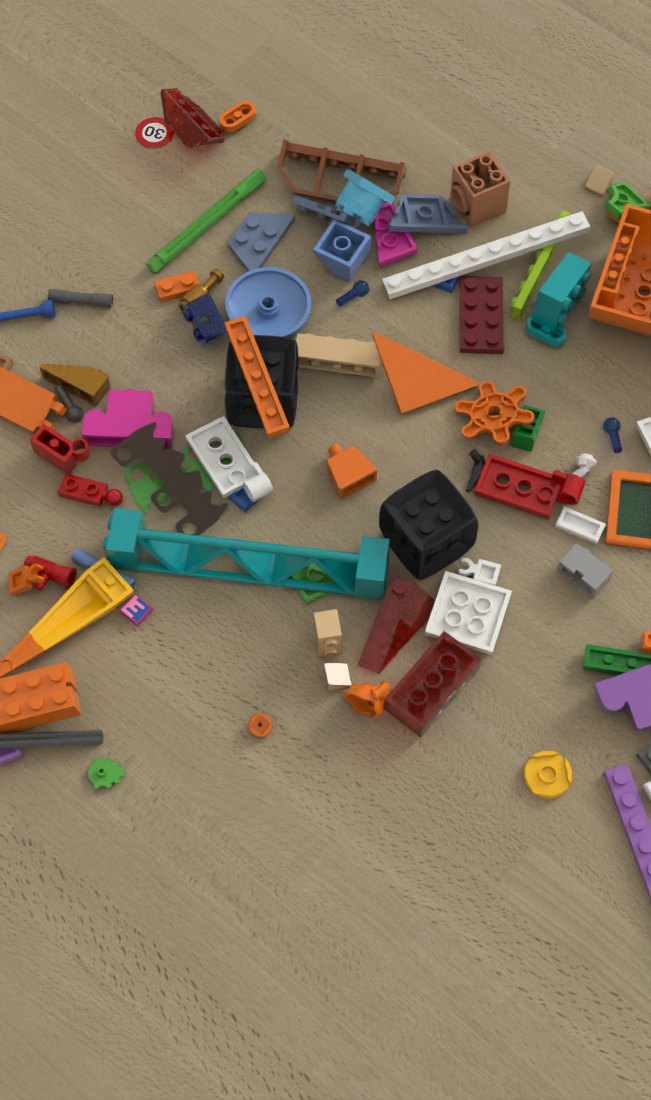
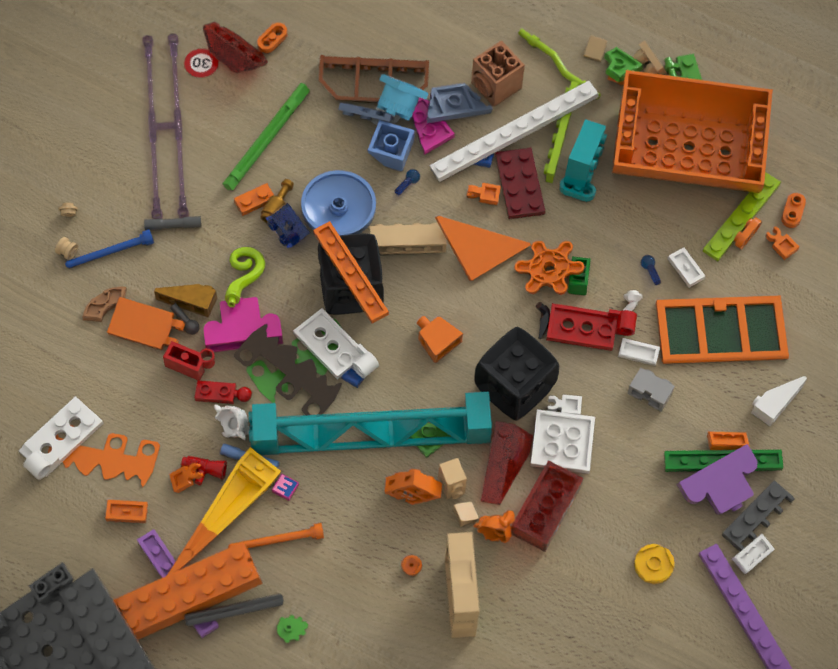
camera: 15 degrees left, 0 degrees up
(86, 191) = (153, 126): none -> bar
(92, 523) = (233, 421): none -> white hair
(131, 376) = (235, 288): none -> lime plant
(157, 666) = (315, 532): none -> orange piece
(259, 237) = (314, 145): sand blue wing -> none
(279, 633) = (413, 486): none -> orange piece
(308, 757) = (461, 585): none -> tan tile
(440, 320) = (488, 193): none -> orange plate
(532, 164) = (534, 41): none -> lime bar

